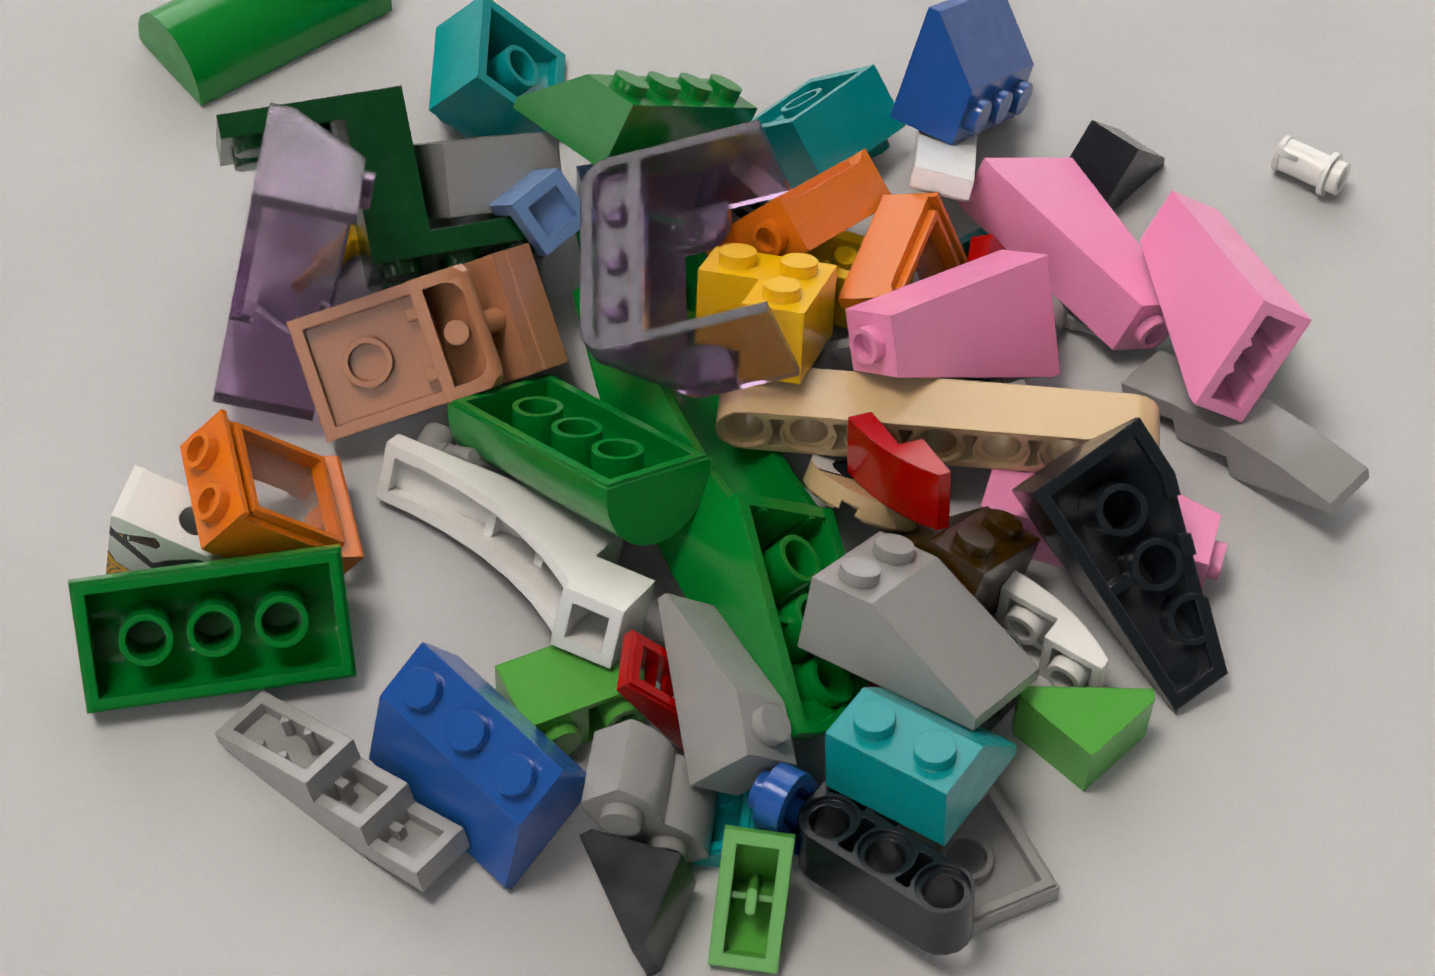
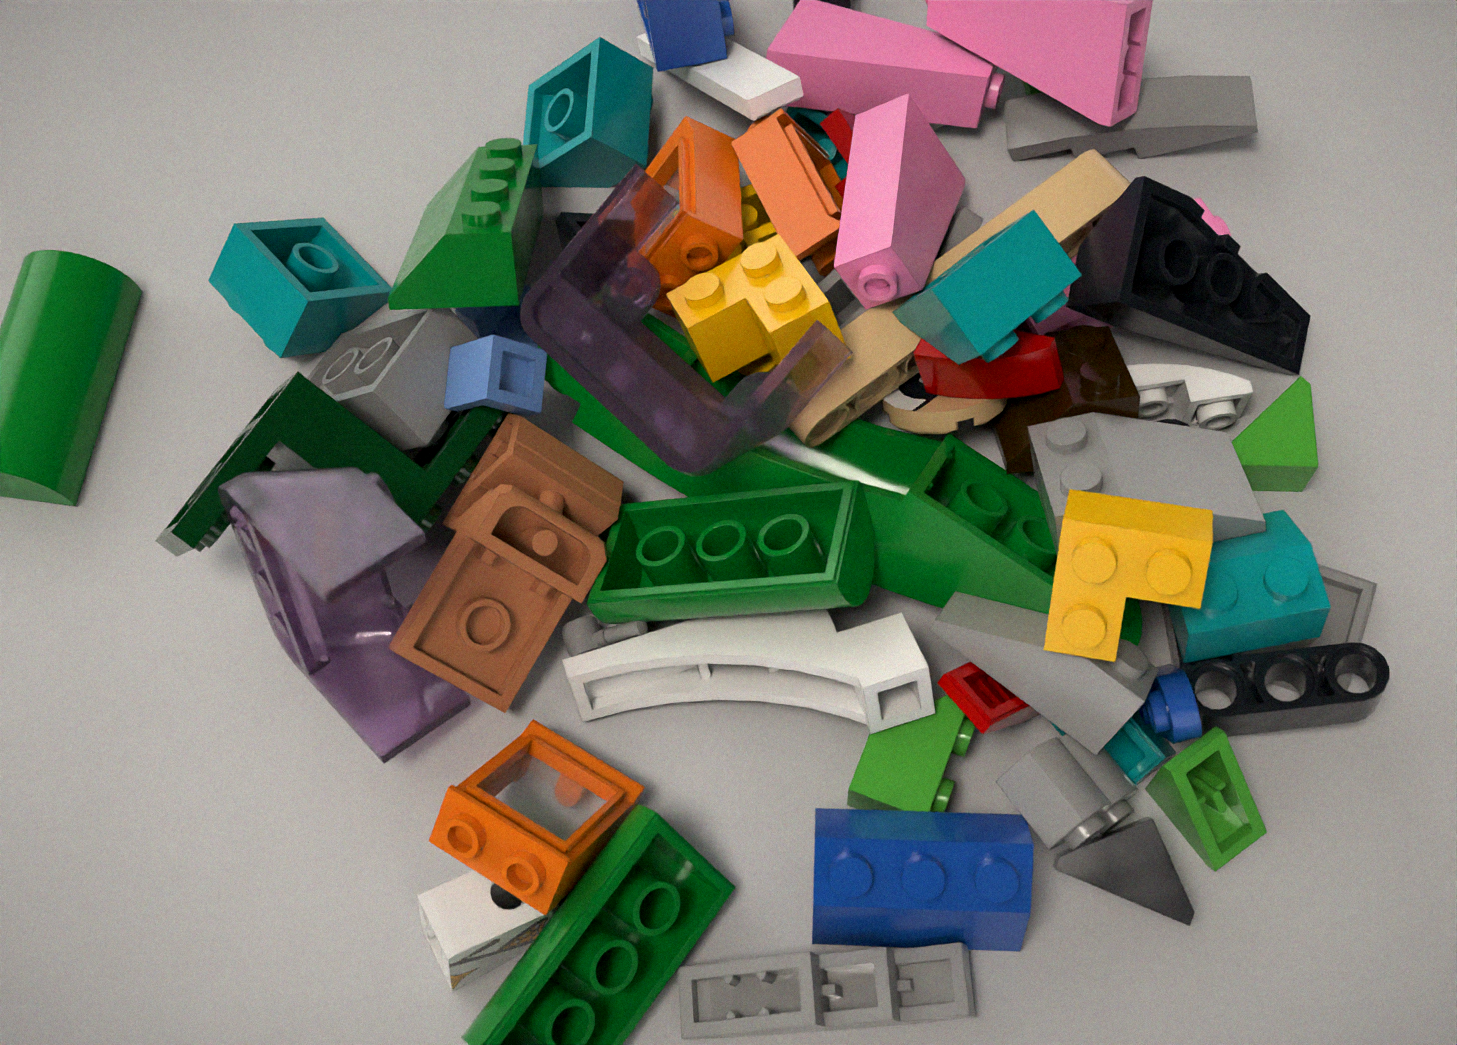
camera: 35 degrees left, 15 degrees up
(812, 626) = (1119, 551): none -> yellow brick
(935, 400) = (991, 292): none -> teal slope

